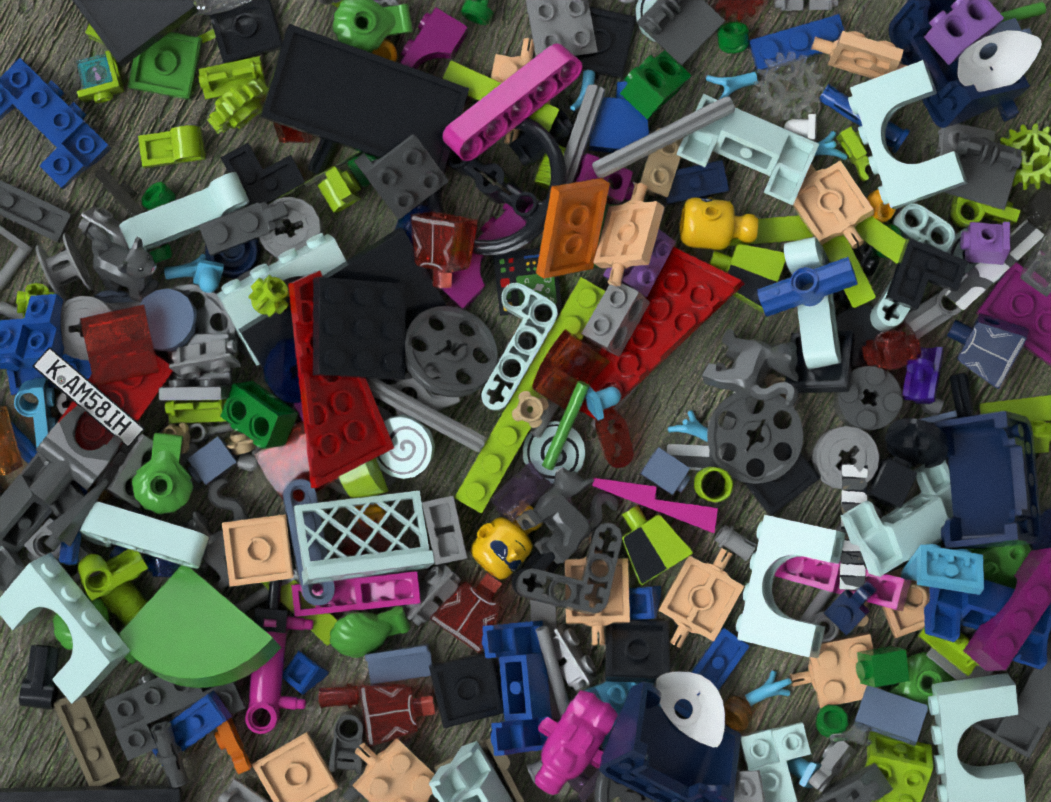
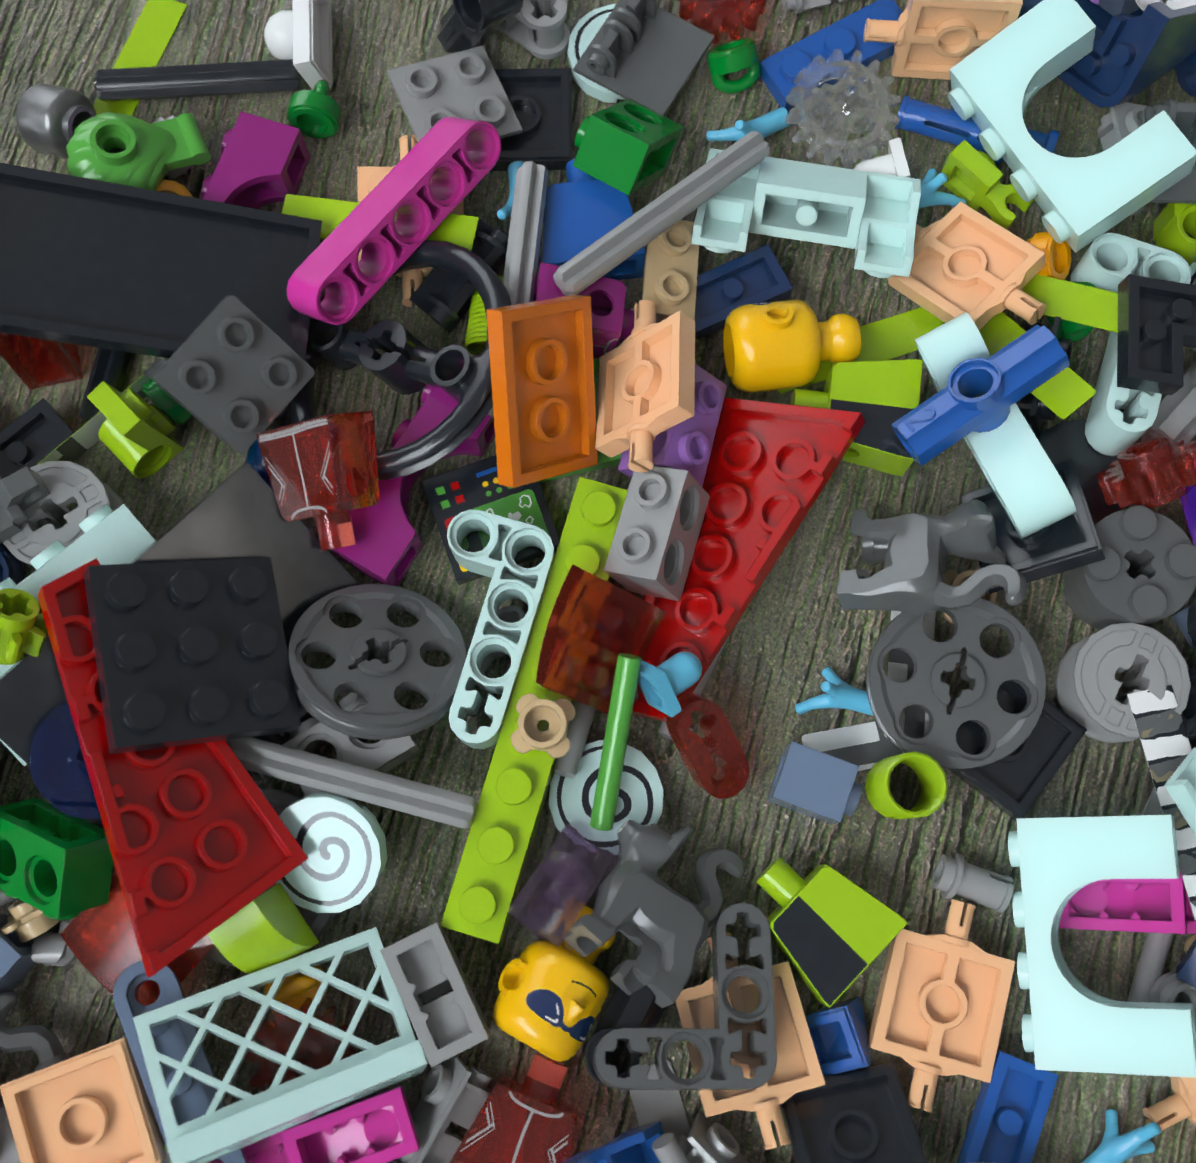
camera: 10 degrees left, 10 degrees down
(644, 495) = (789, 836): dark pink slope -> none

